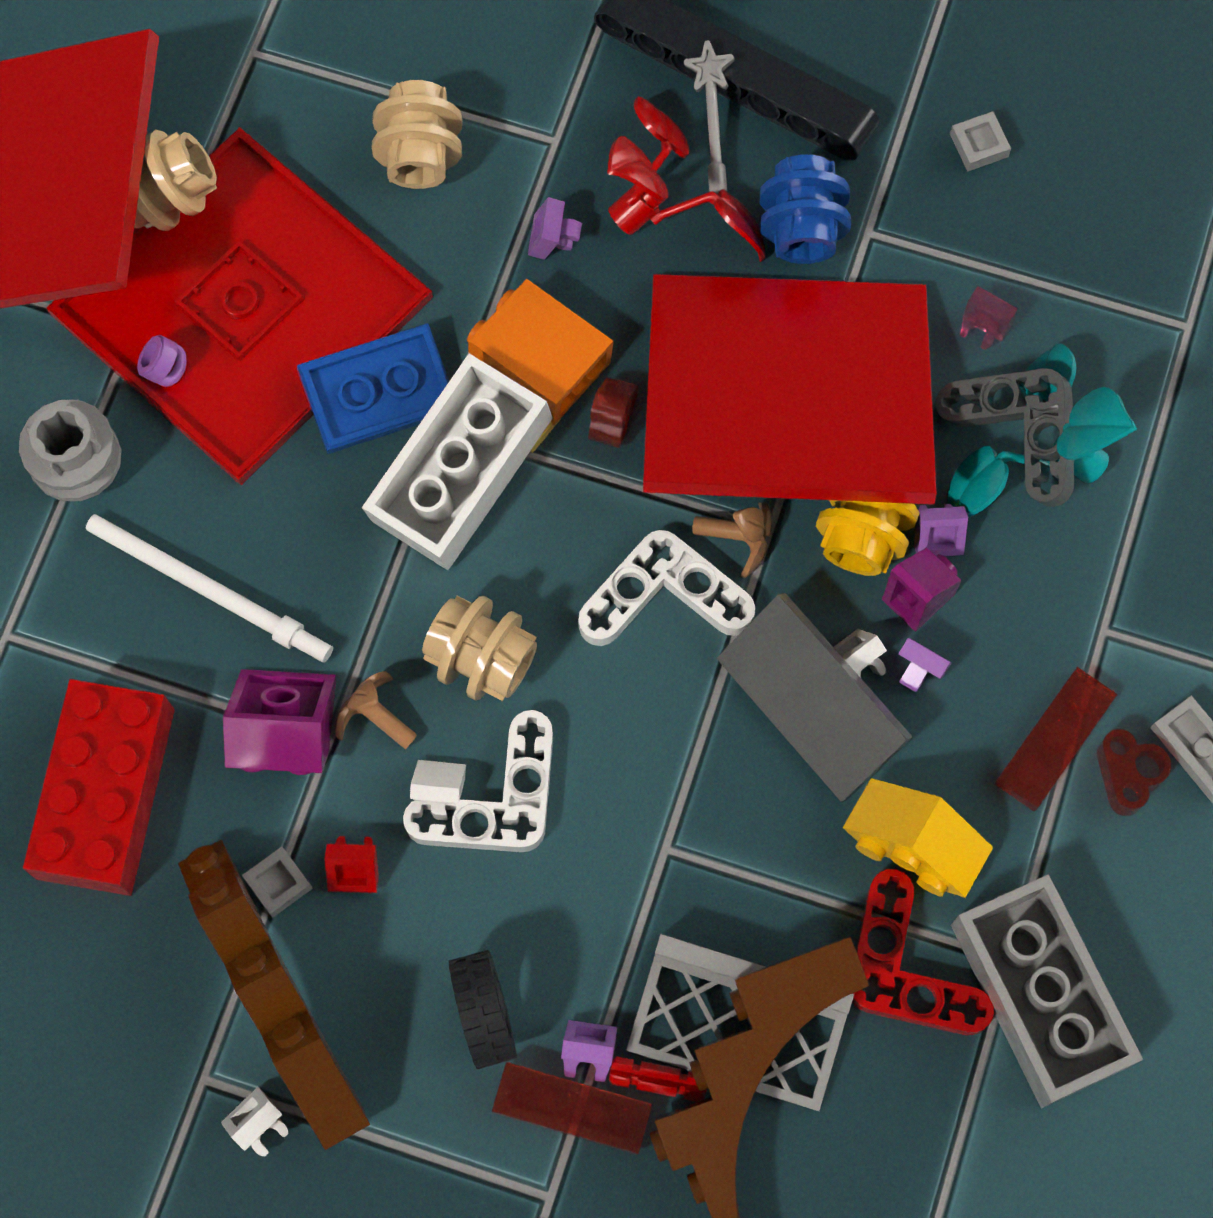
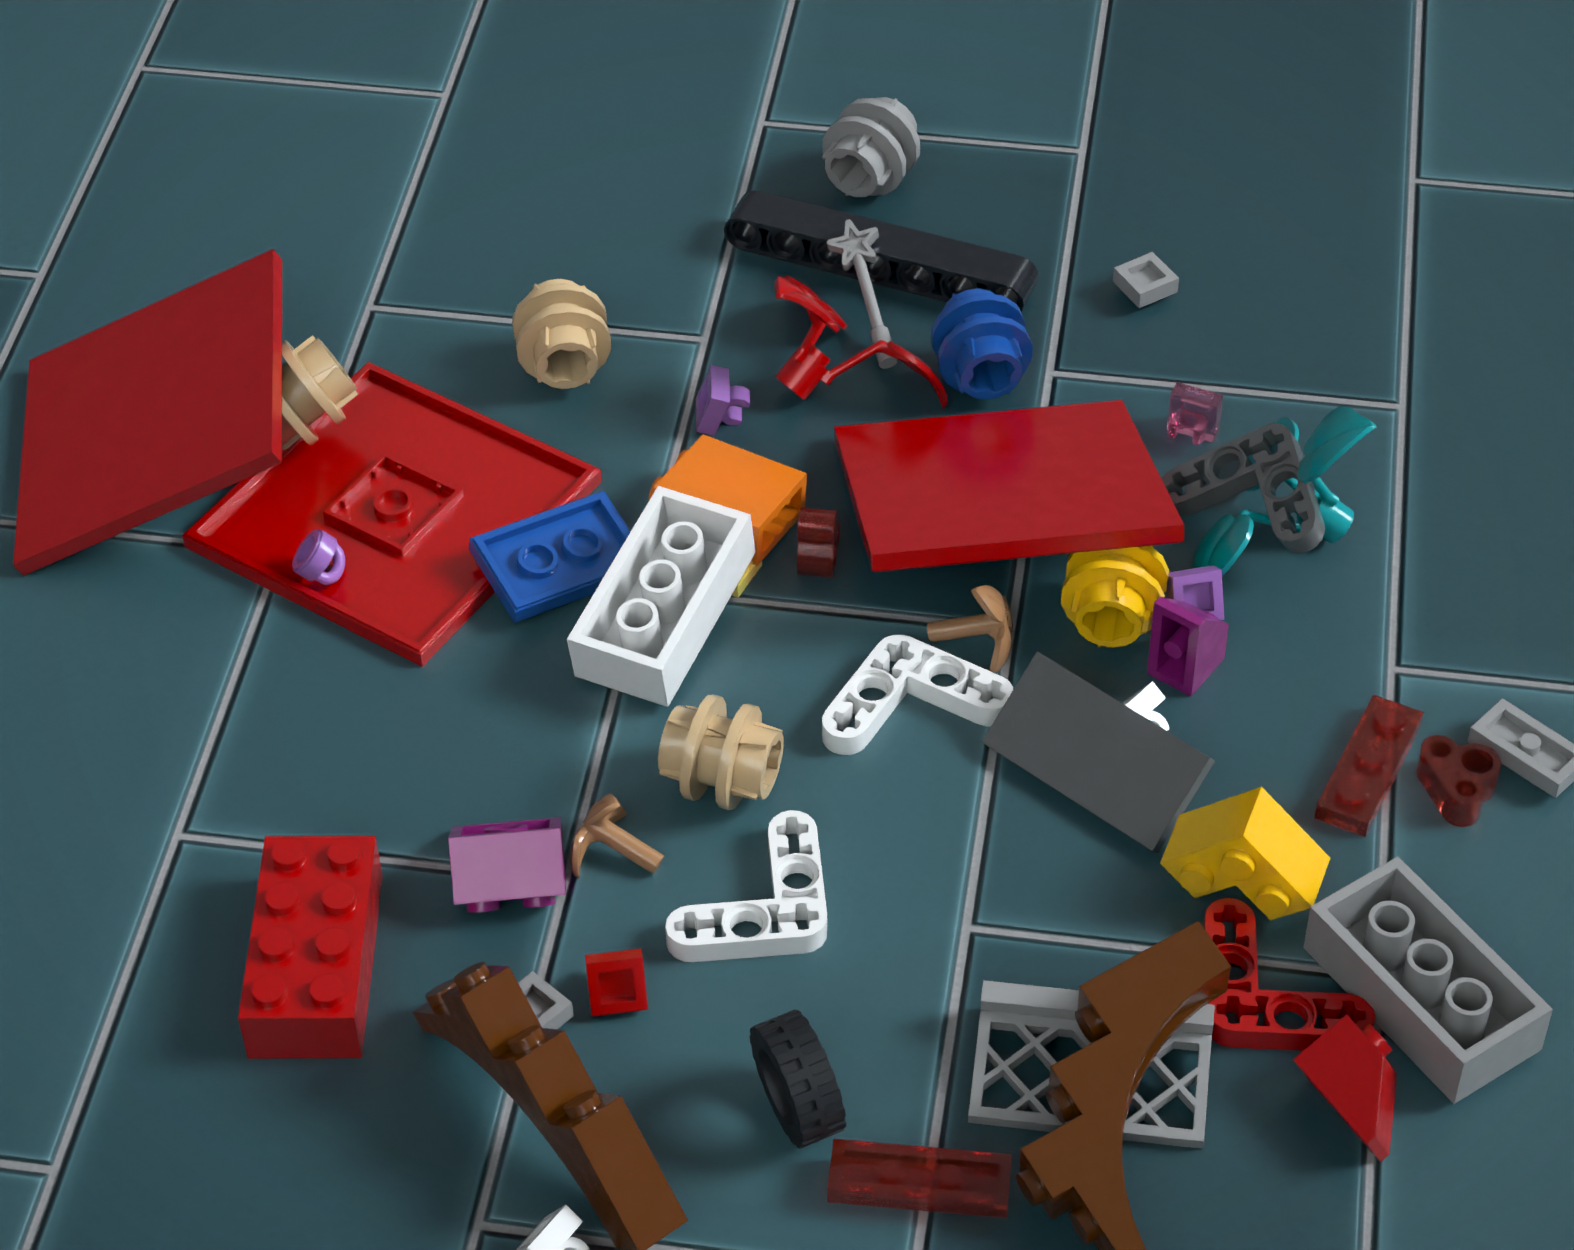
camera: 10 degrees left, 25 degrees down
(70, 450) = (232, 639): light grey piece -> none
(283, 630) = (497, 781): white bar -> none
(437, 782) = (698, 890): white tile -> none
(588, 1044) = (931, 1111): medium lavender tile -> none
(654, 1079) = (1000, 1136): red axle -> none
(922, 663) = (1206, 710): medium lavender tile -> none
(958, 1086) = (1355, 1080): none -> red slope

